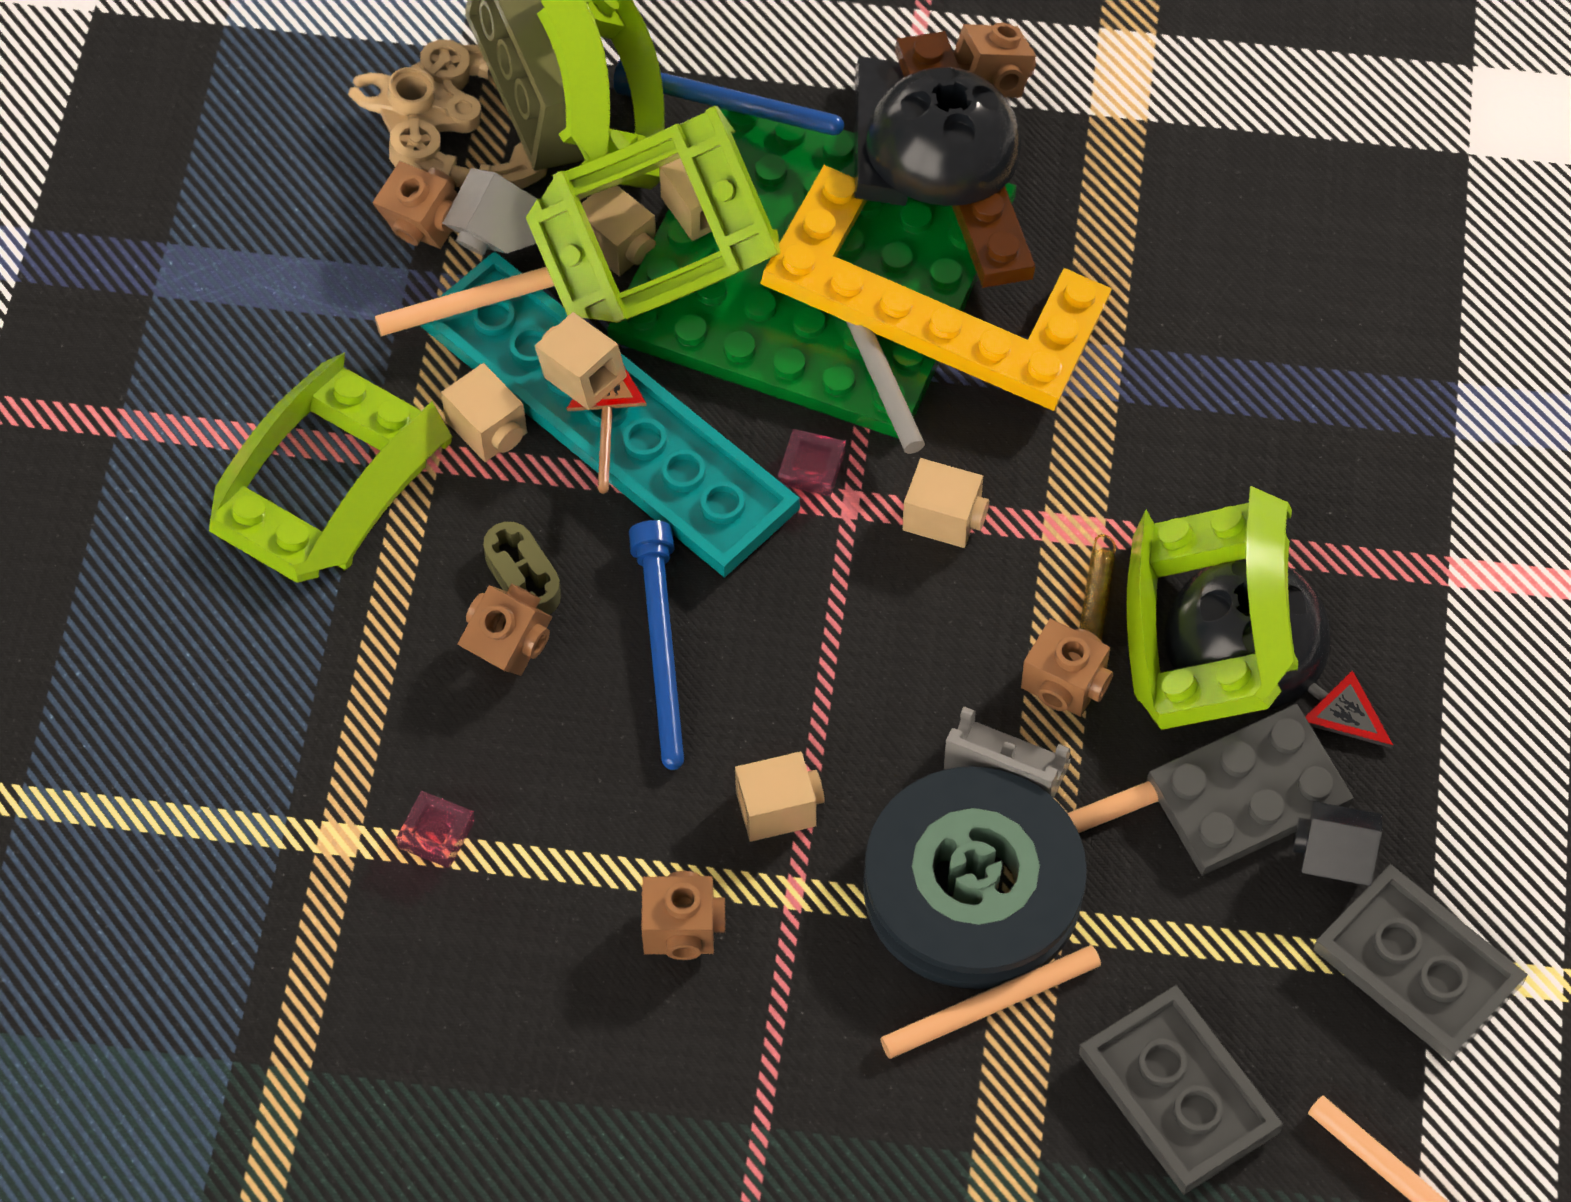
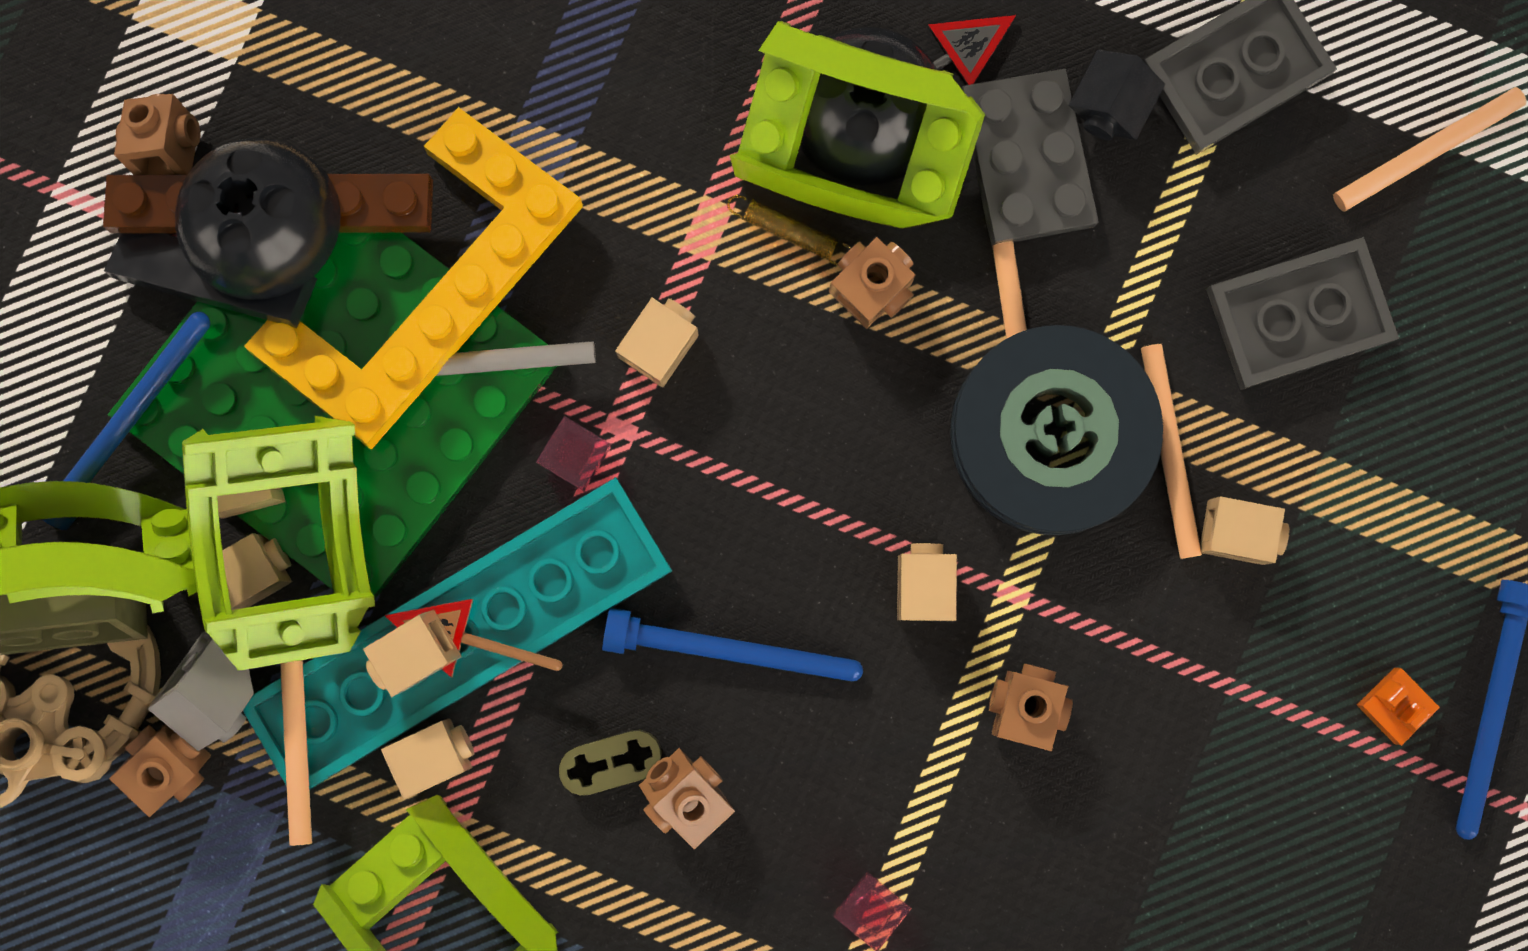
camera: 75 degrees left, 25 degrees up
(927, 1082) = (1244, 531): none -> tan brick
(985, 747) = (940, 363): light grey hinge -> none

